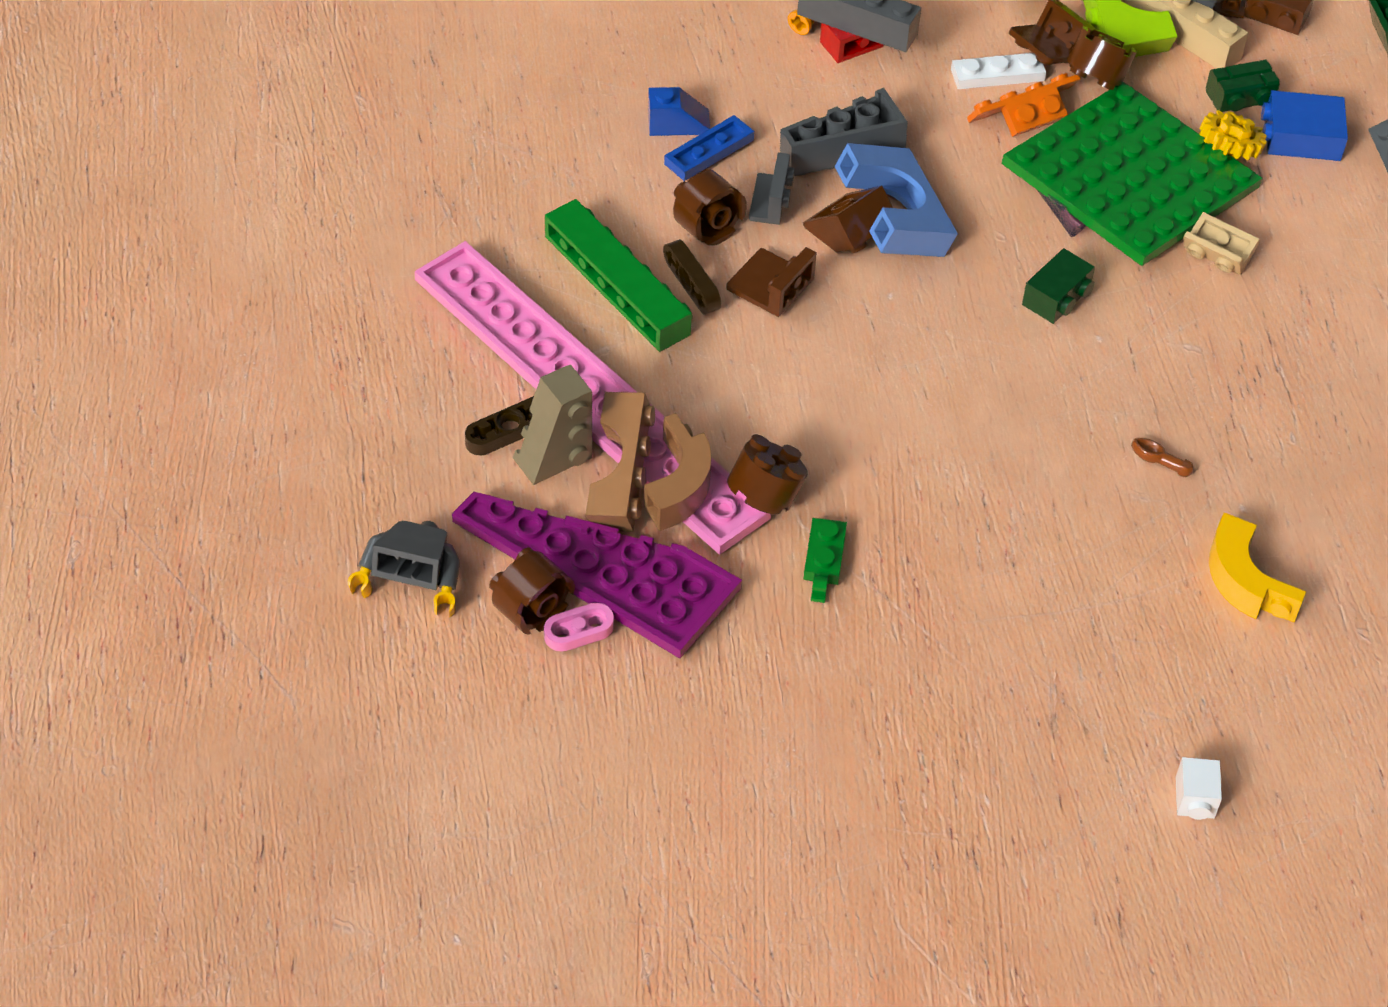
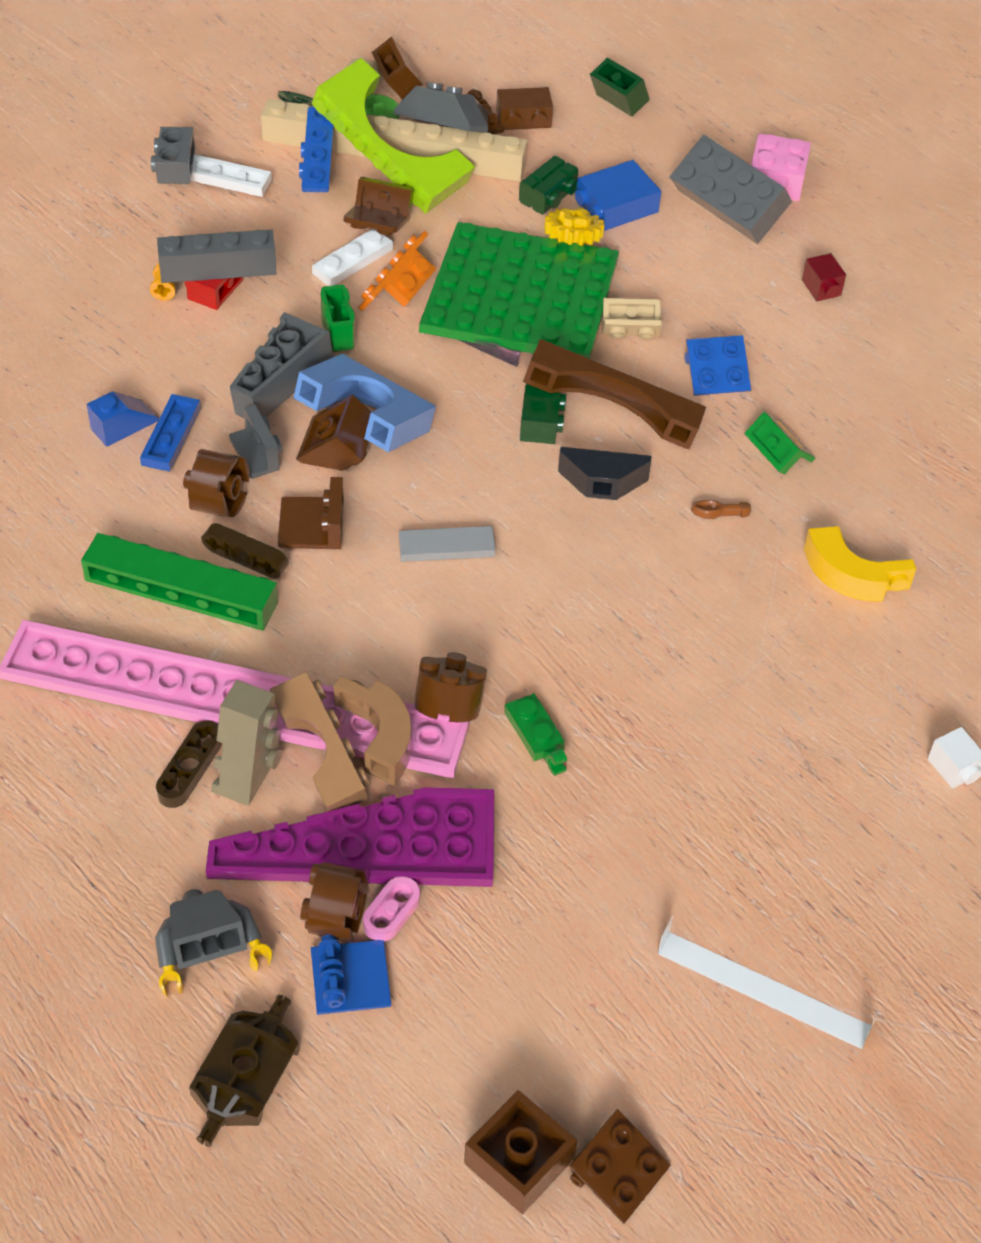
camera: 35 degrees left, 0 degrees up
(343, 696) = (237, 1095): none -> dark brown plate
(504, 659) = (349, 976): none -> blue hinge
(522, 868) = (520, 1151): none -> reddish brown brick
(598, 931) = (619, 1166): none -> reddish brown hinge
(847, 873) = (764, 989): none -> white sticker
(876, 359) = (446, 543): none -> light grey tile
(933, 116) = (338, 317): none -> green brick
(1074, 369) = (603, 472): none -> black slope
(1100, 57) = (434, 209): reddish brown brick -> none
(1178, 346) = (565, 371): none -> reddish brown arch
(1271, 327) = (718, 365): none -> blue hinge
(1272, 425) = (777, 442): none -> green panel

